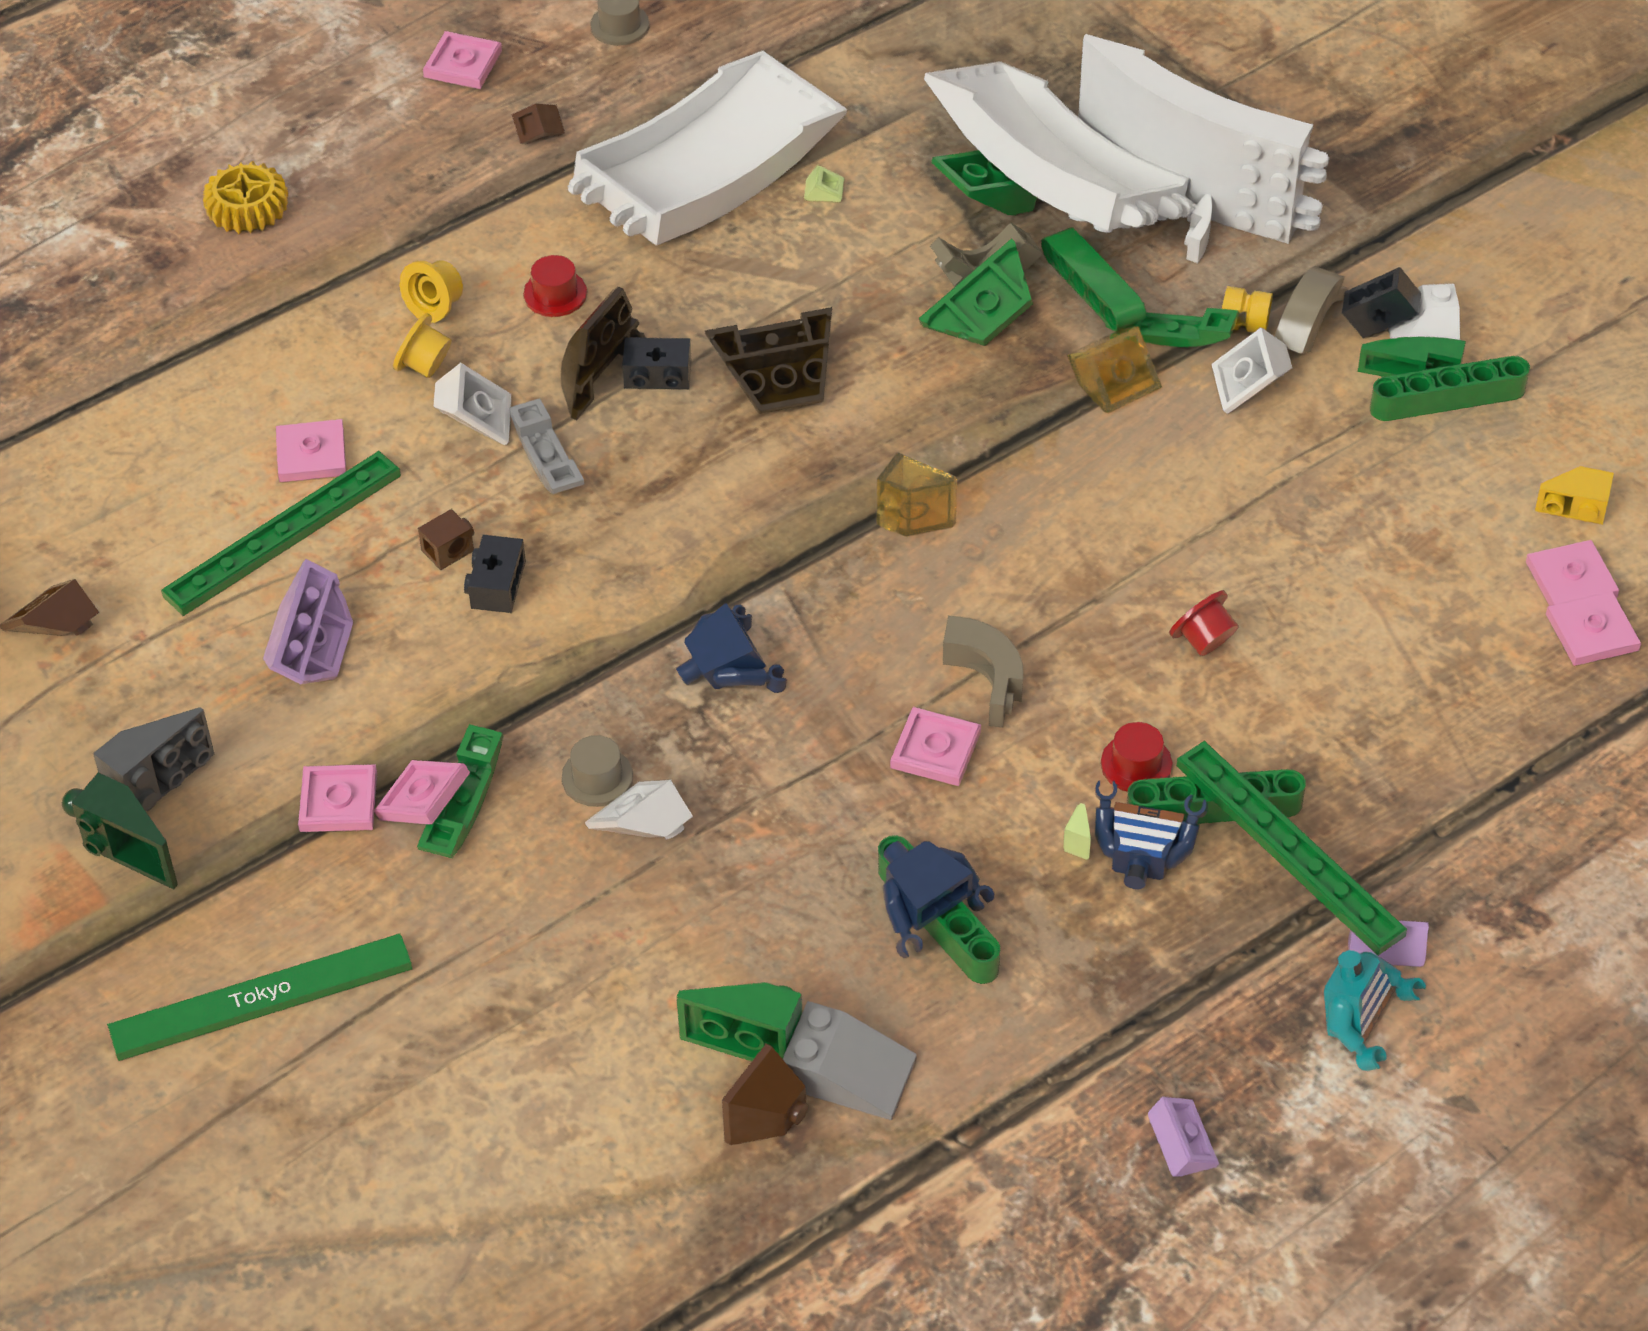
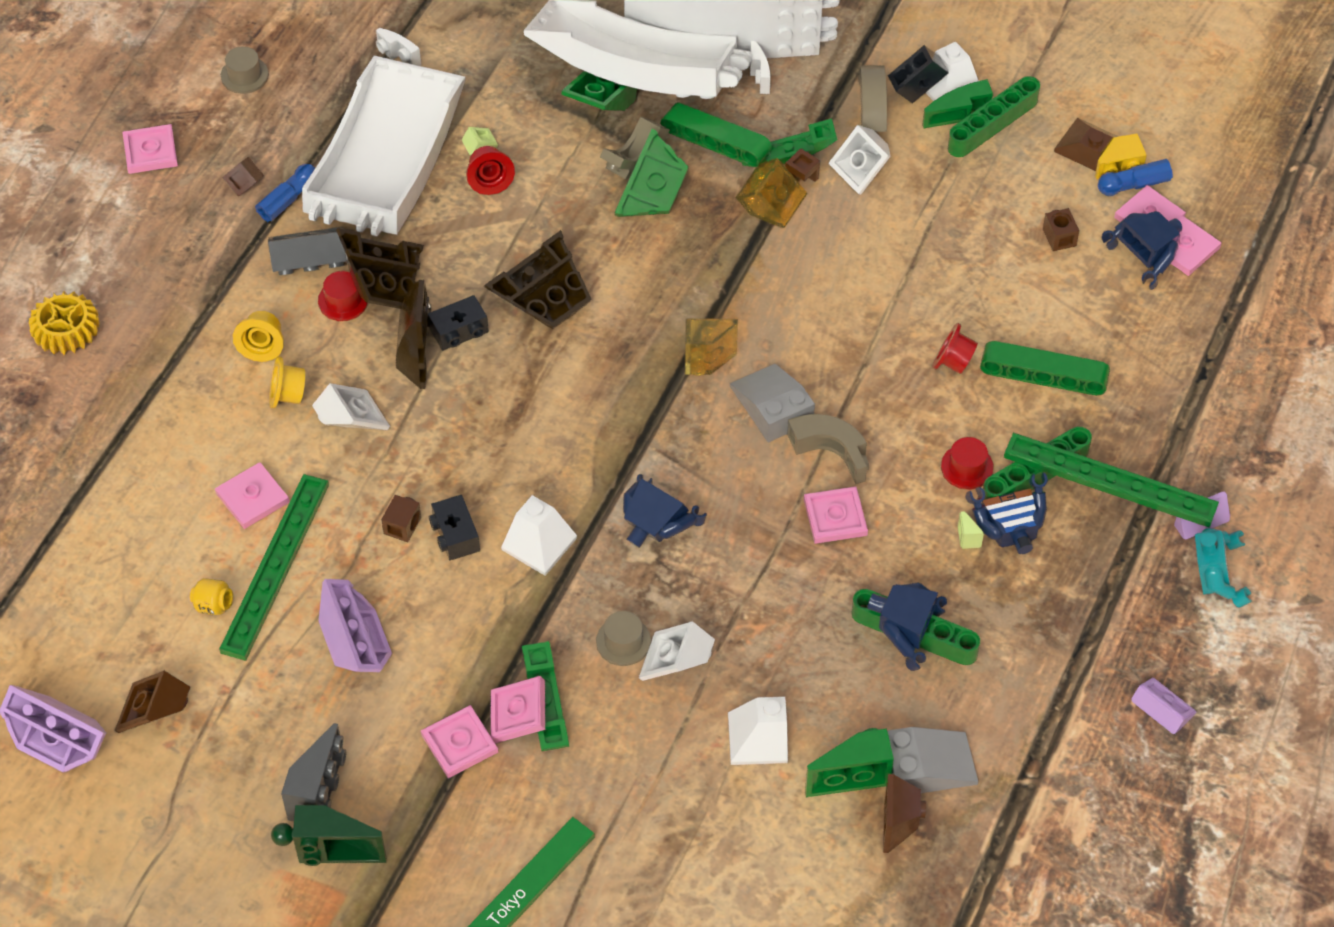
camera: 30 degrees left, 5 degrees up
(190, 532) = (211, 596): none -> yellow head
(544, 448) = (422, 422): light grey slope -> none
(550, 225) = (306, 251): none -> dark grey slope
(559, 160) = (284, 193): none -> blue piece
(581, 622) = (538, 536): none -> white slope
(602, 261) = (380, 269): none -> dark brown wedge
(675, 942) = (759, 732): none -> white slope
(800, 54) = (397, 45): none -> white slope
(803, 218) = (489, 171): none -> red piece
(954, 588) = (772, 399): none -> light grey slope
(1169, 350) = (803, 166): none -> reddish brown panel
(1252, 309) = (837, 109): yellow wheel -> none
(1309, 692) = (1045, 368): none -> green beam
(1441, 545) = (1060, 229): none -> reddish brown brick
(1542, 601) = (1149, 239): none -> dark blue torso
(1544, 460) = (1084, 143): none -> reddish brown slope
(1579, 524) = (1136, 177): none -> blue piece

